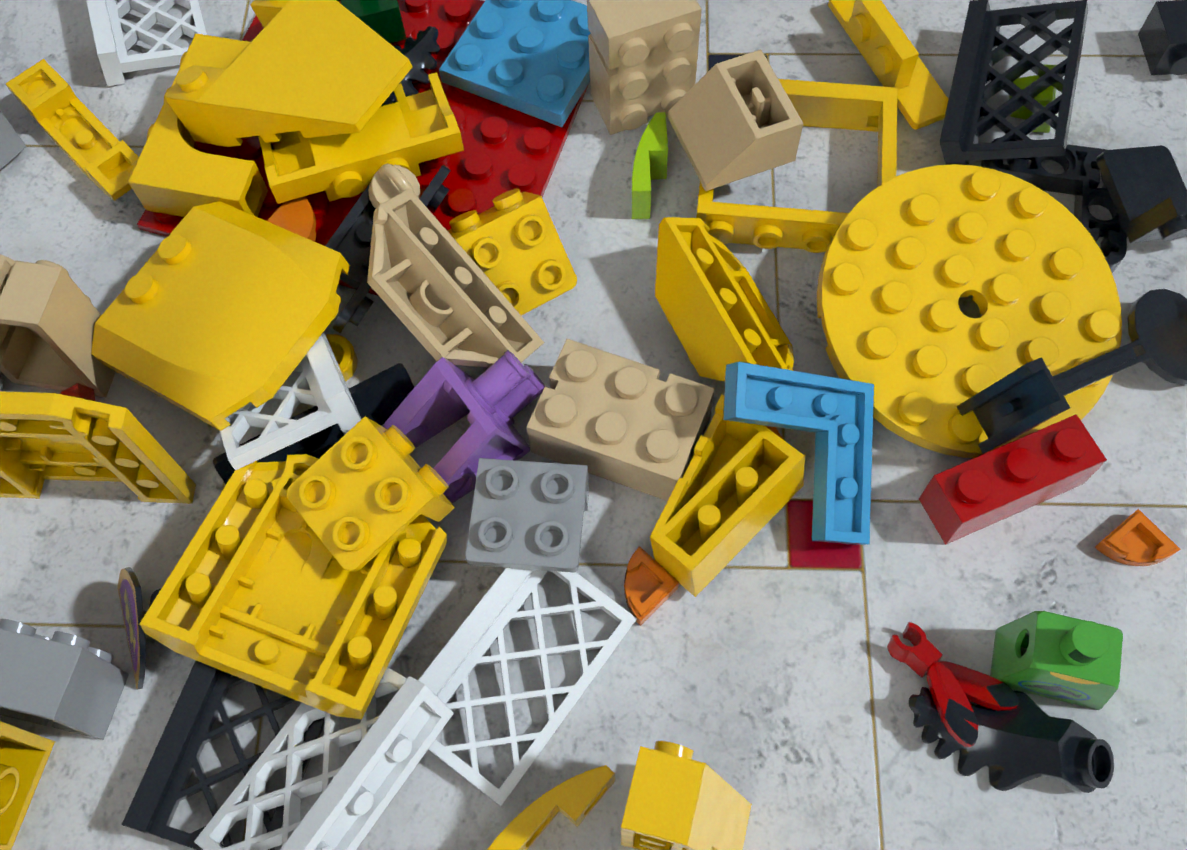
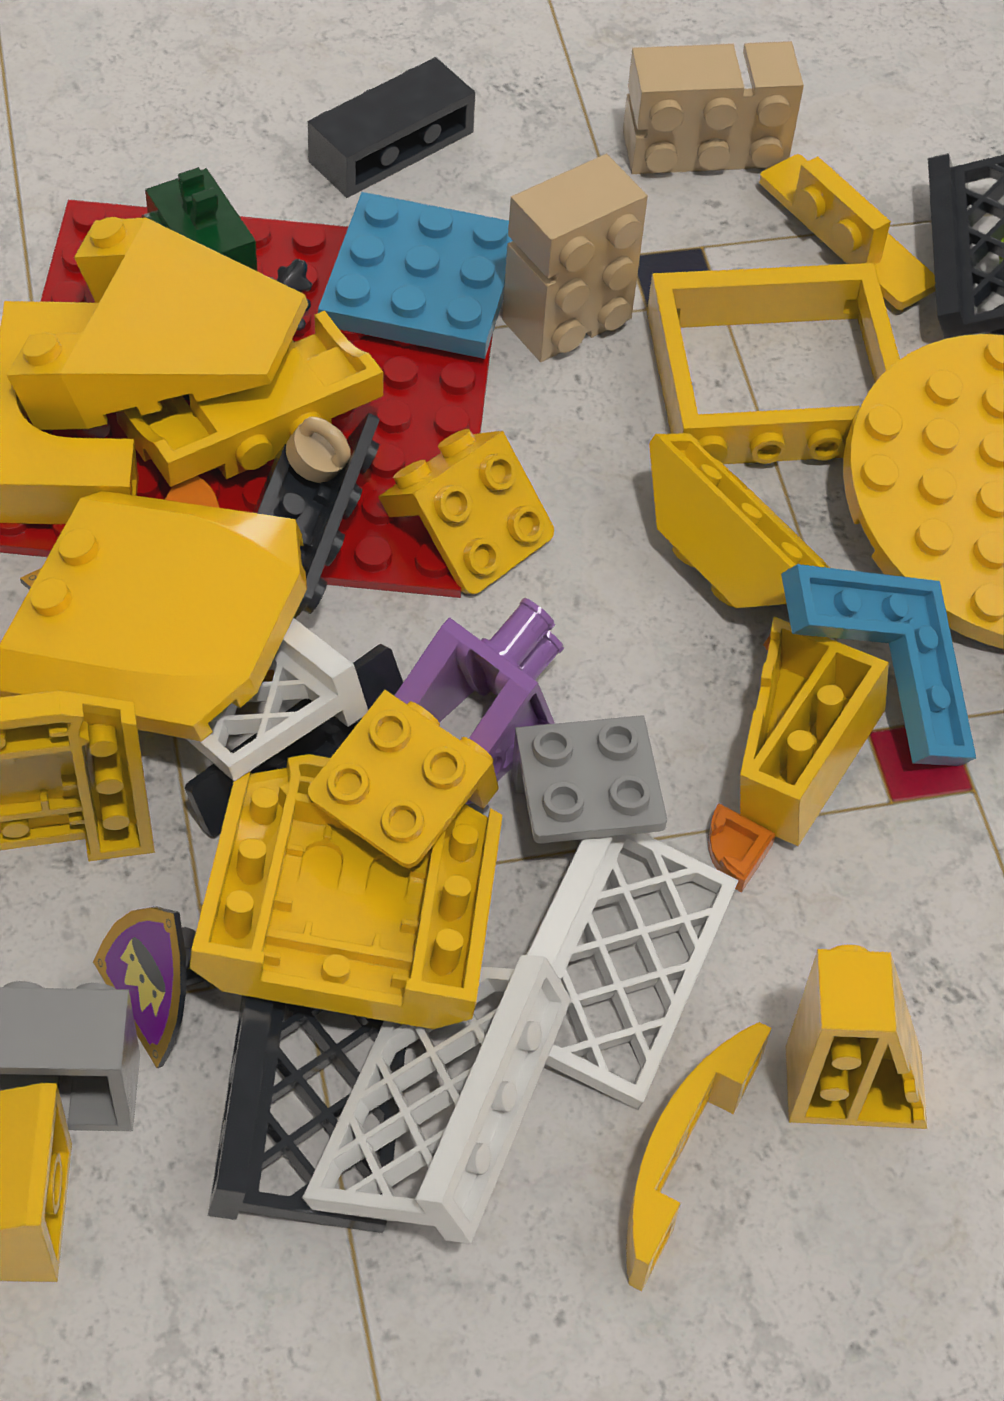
camera: 20 degrees left, 10 degrees down
(441, 289) = (414, 549): tan wedge -> none
(619, 419) = (666, 662): tan piece -> none
(649, 164) = (606, 390): lime slope -> none
(737, 121) = (708, 319): tan slope -> none

